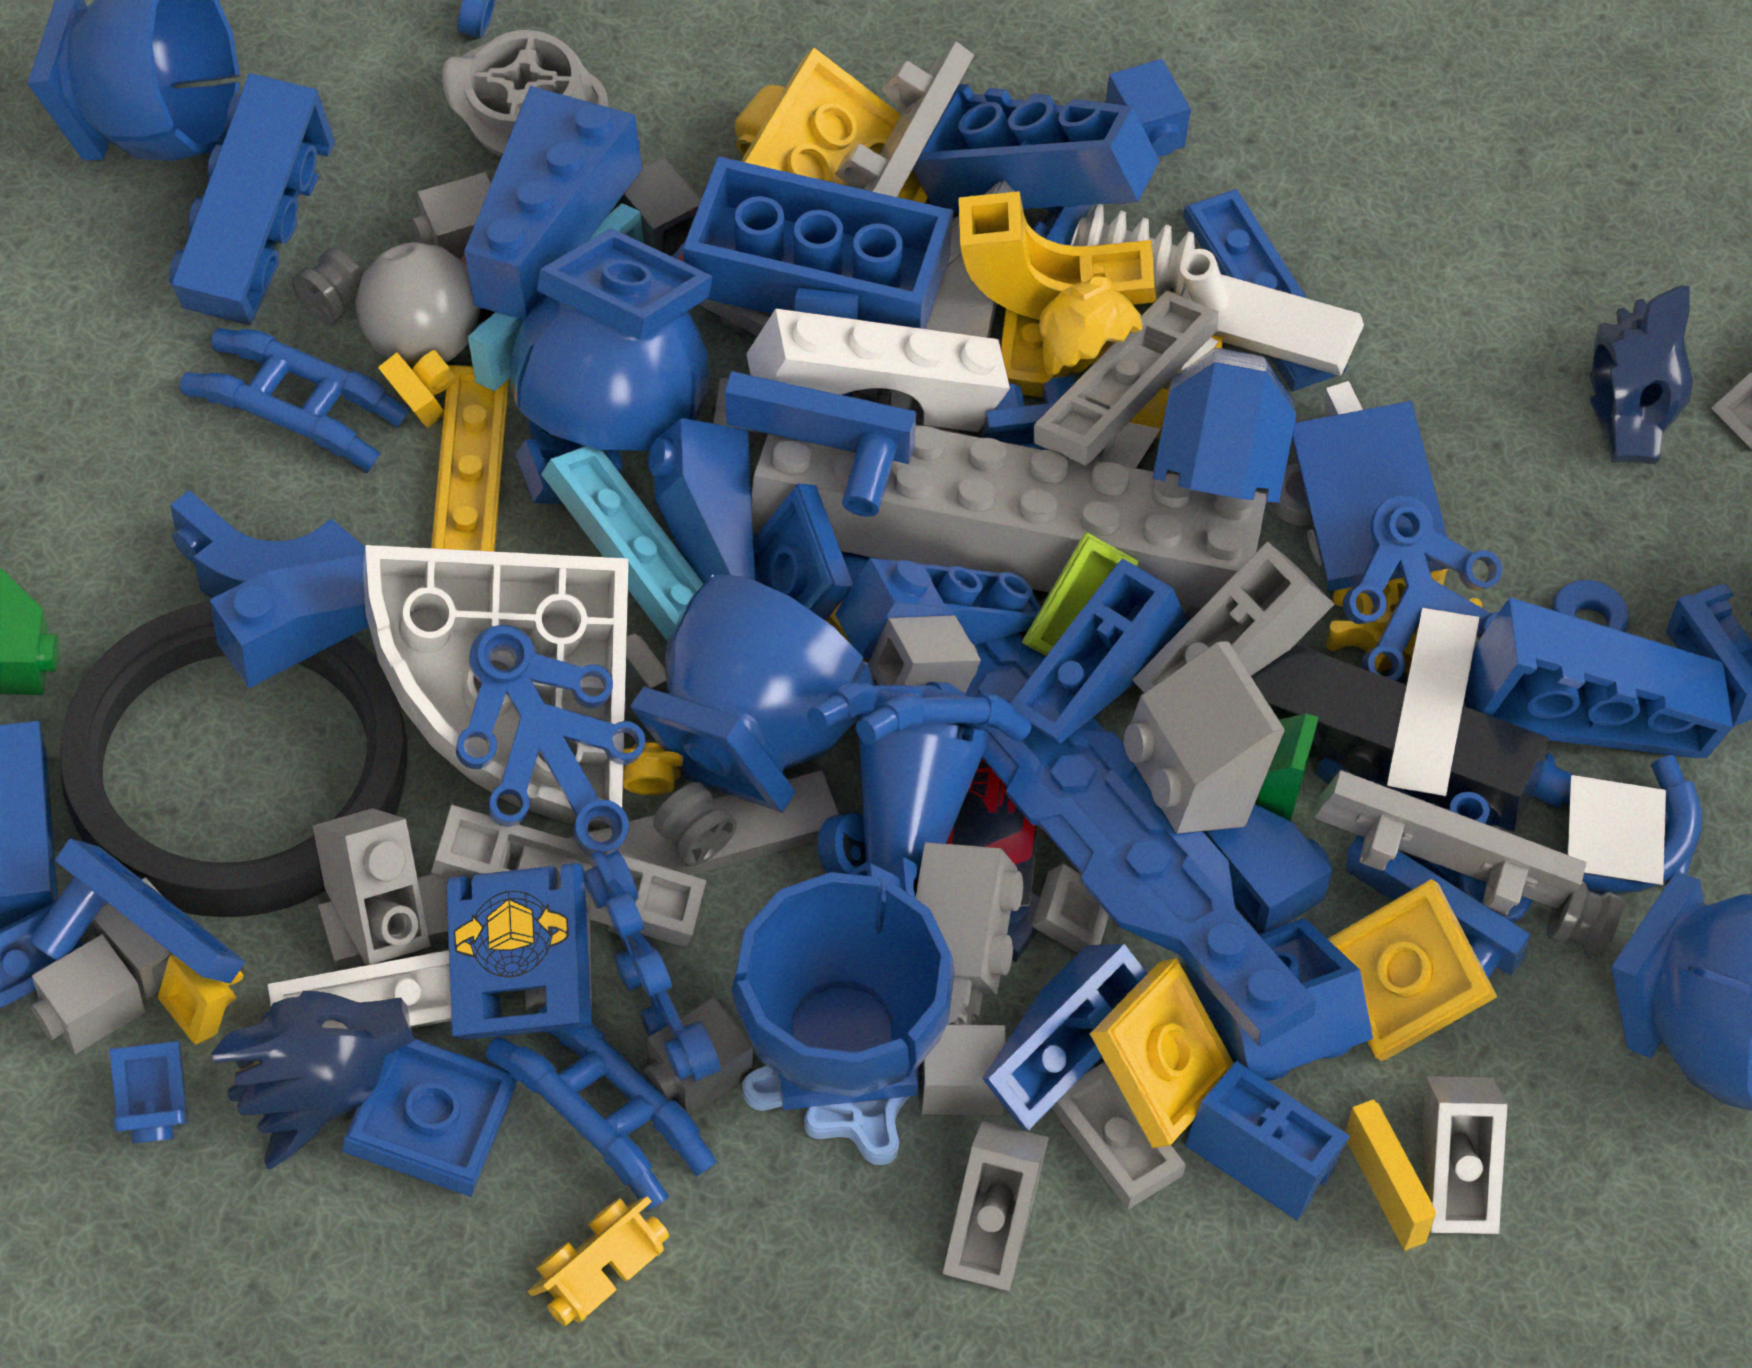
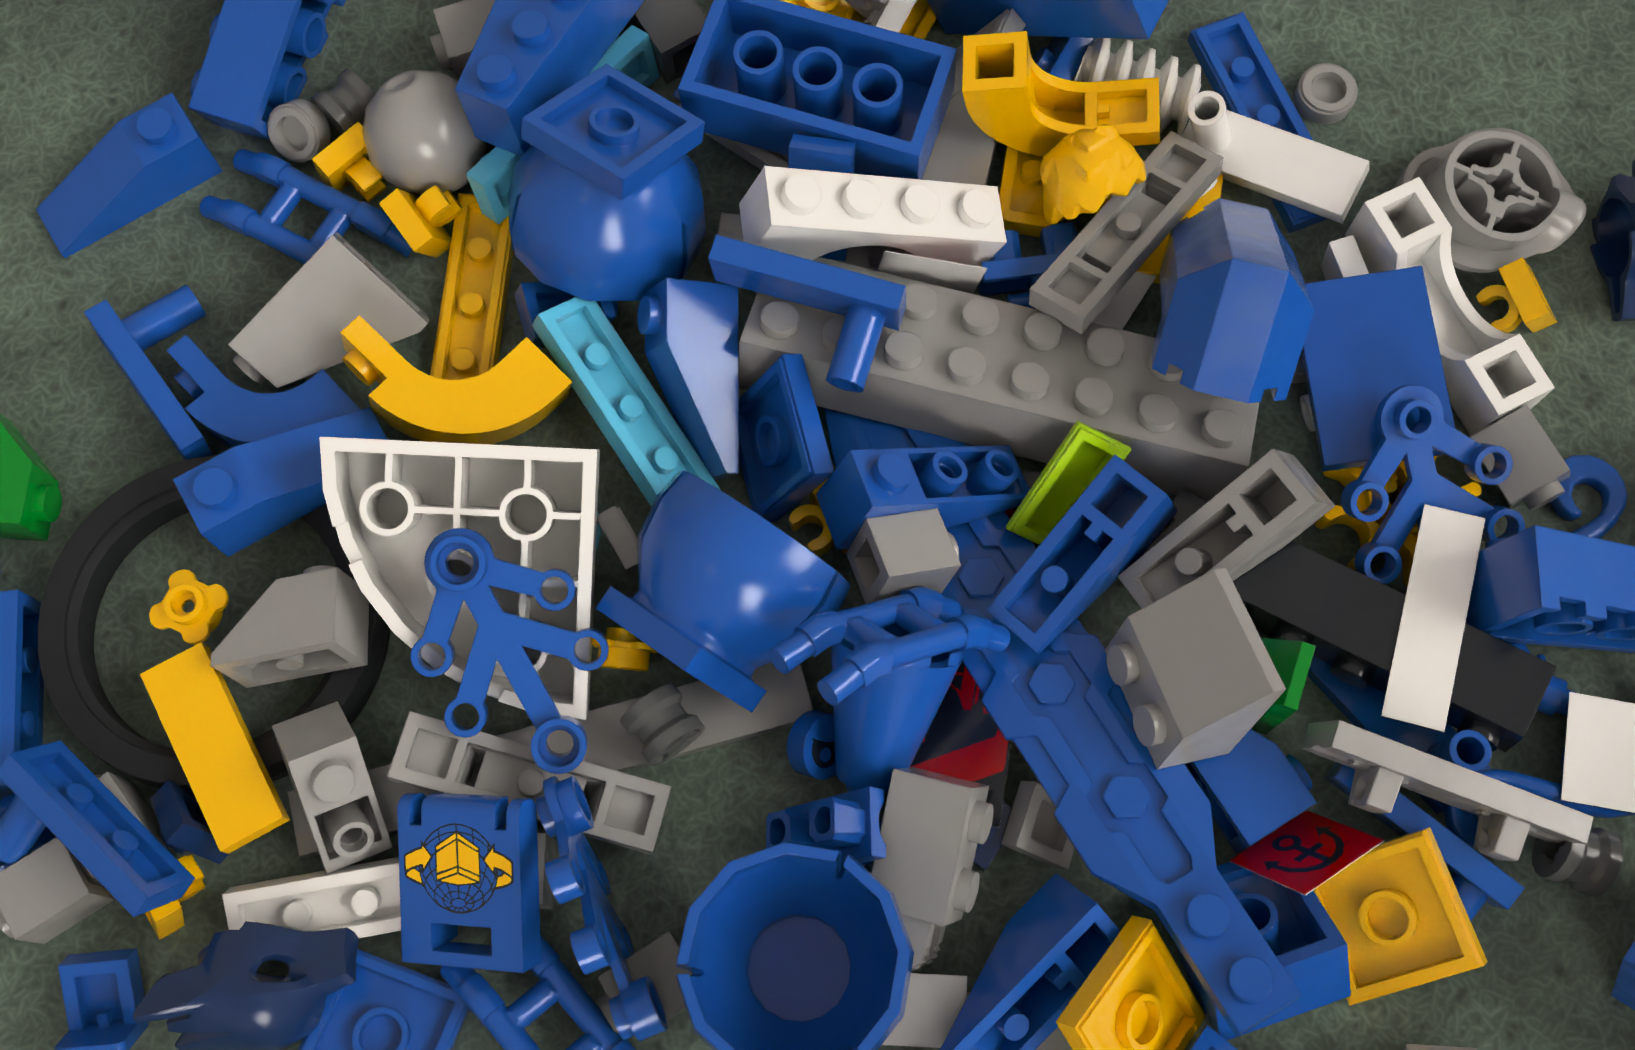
camera: 10 degrees right, 15 degrees up
(106, 352) = (128, 174): none -> blue slope
(123, 516) = (139, 331): none -> blue piece
(218, 747) = (205, 616): none -> yellow plate
(231, 925) = (183, 823): none -> dark blue plate
(254, 850) = (214, 748): none -> yellow tile
(280, 308) = (298, 130): none -> light grey tile
(328, 471) = (303, 321): none -> light grey slope
(331, 743) = (298, 630): none -> light grey slope
(339, 337) = (348, 162): none -> yellow tile
(532, 525) = (467, 410): none -> yellow arch
(943, 413) = (932, 271): none -> white sticker
(1322, 263) = (1325, 93): none -> light grey tile
(1324, 915) = (1306, 852): none -> red sticker
(1479, 500) = (1483, 367): none -> white arch
(1483, 352) = (1493, 186): none -> light grey piece
(1521, 439) = (1523, 296): none -> yellow tile
(1524, 571) = (1536, 461): none -> light grey brick

